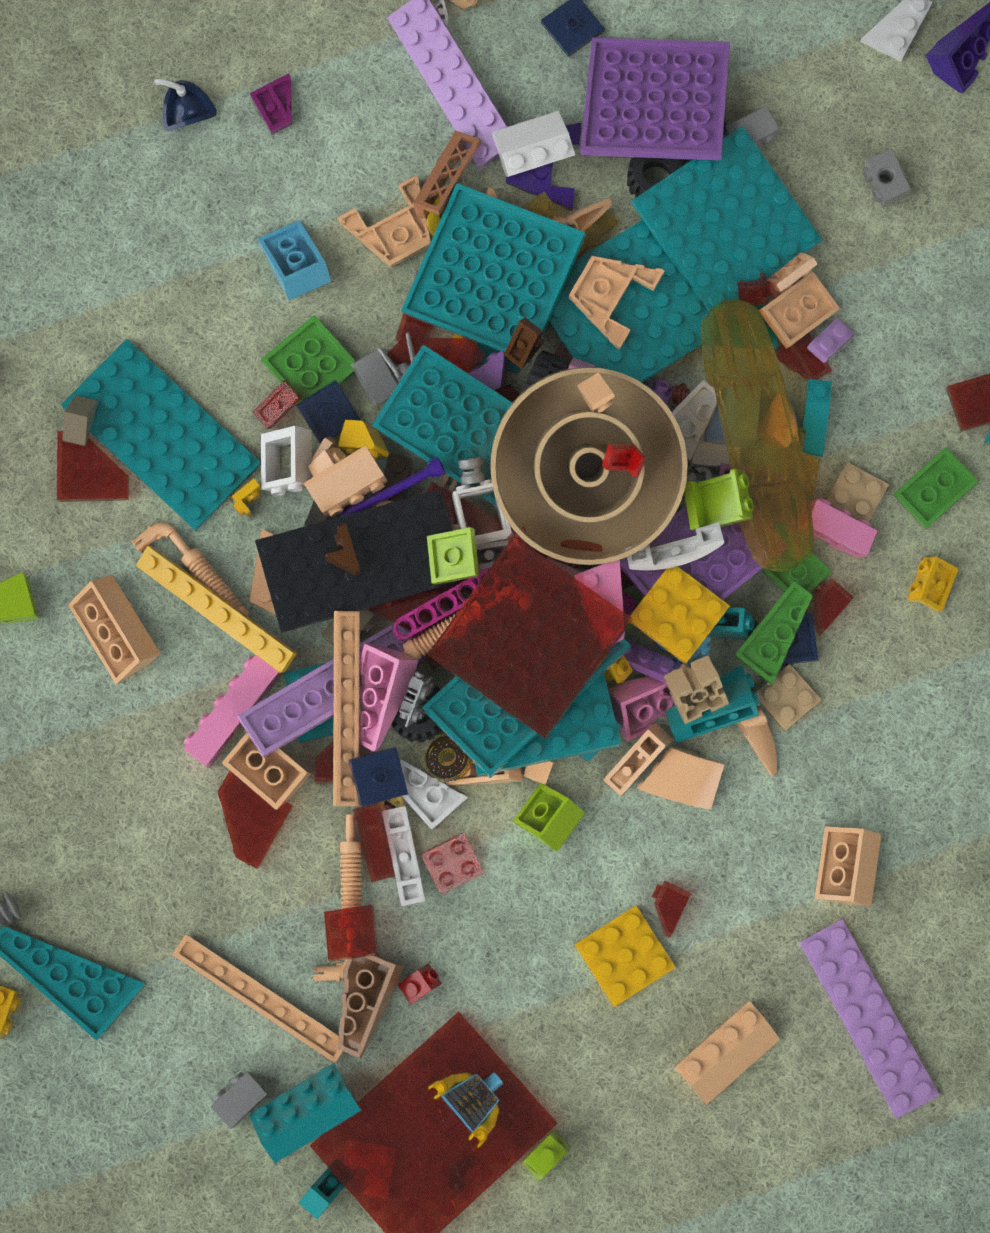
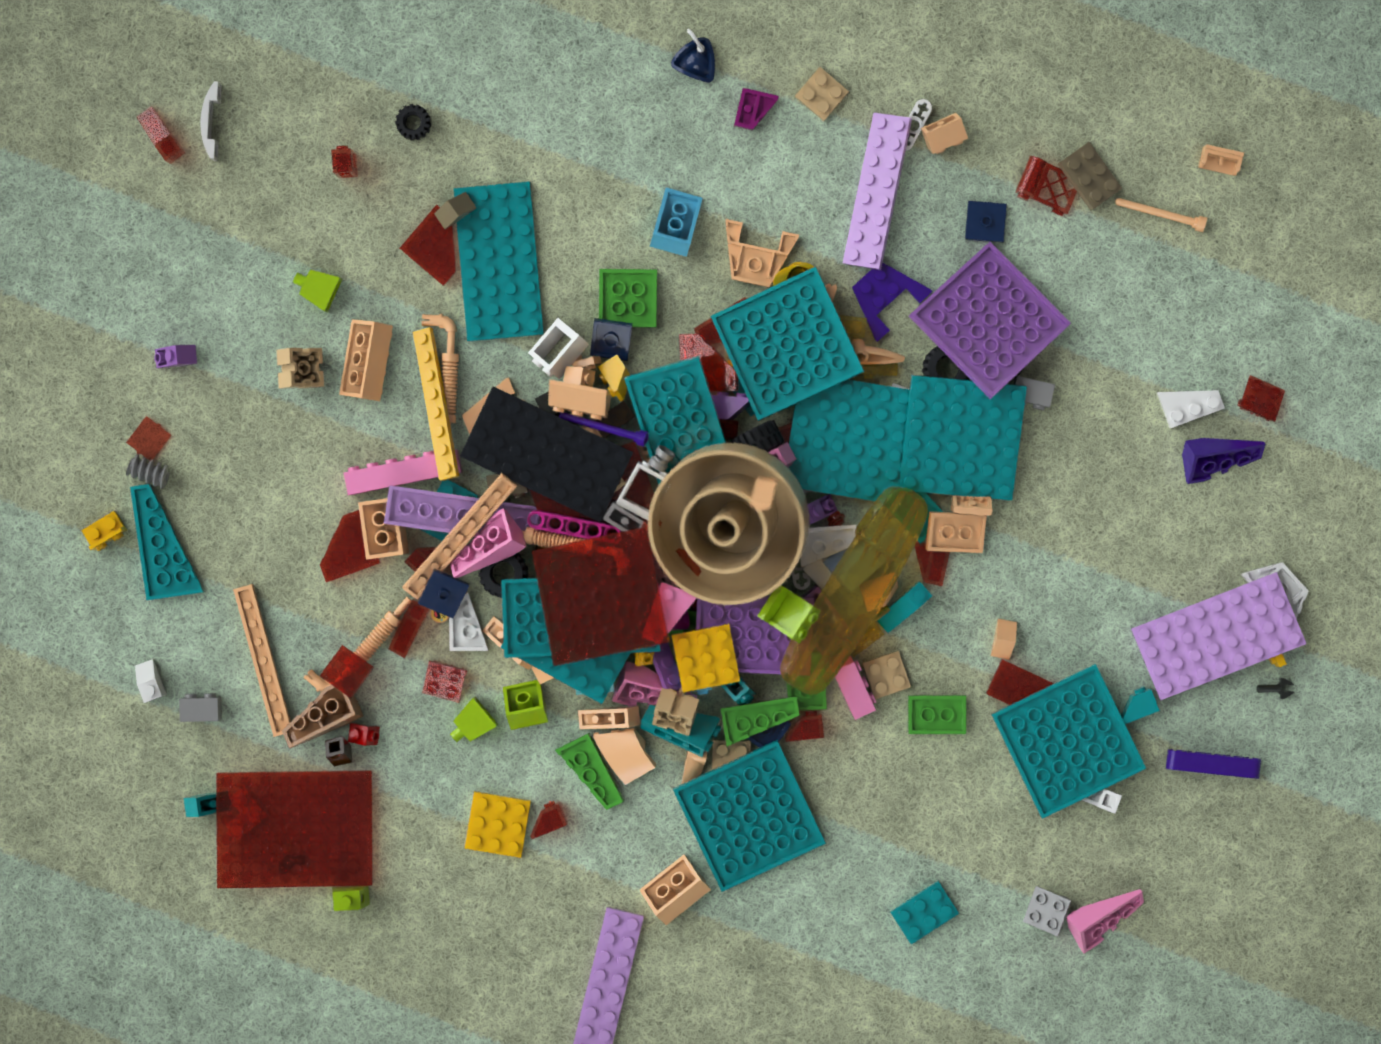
camera: 35 degrees right, 10 degrees up
(57, 686) = (300, 368): none -> tan brick
(166, 1118) = (149, 681): none -> white slope
(249, 494) = (517, 347): yellow bracket -> none
(277, 404) = (584, 307): clear red plate -> none
(304, 1113) = (230, 751): teal brick -> none
(326, 41) = (821, 94): none -> tan plate
(344, 558) = (536, 449): reddish brown slope -> none
(375, 377) = (658, 344): light grey brick -> none
(400, 369) = (675, 354): light grey plant -> none
(403, 856) = (419, 652): white slope -> none
(410, 1019) = (338, 751): none -> dark brown brick
(413, 711) = (505, 568): light grey hinge -> none
(434, 760) = (484, 615): tile -> none
(442, 170) = (814, 248): nougat fence -> none
(453, 556) = (601, 503): lime plate -> none
(471, 1101) = (331, 831): torso -> none
(513, 877) = (472, 721): none -> lime torso
(524, 343) = (762, 408): reddish brown slope -> none
(533, 143) = (886, 282): white slope -> none
(602, 288) = (844, 414): light nougat wing -> none
(624, 458) = (748, 545): red bracket -> none
(663, 822) = (592, 770): none -> bright green wing
(678, 552) = (738, 622): white slope -> none
(727, 1052) = (506, 931): light nougat slope -> none
(754, 291) = (936, 498): clear red bracket -> none
(830, 340) = (957, 567): lavender plate -> none
(852, 733) = (749, 815): none -> teal plate
(886, 165) = (1096, 488): light grey brick -> none
(932, 368) = (1004, 639): none -> light nougat slope
(933, 583) = (881, 769): yellow bracket -> none

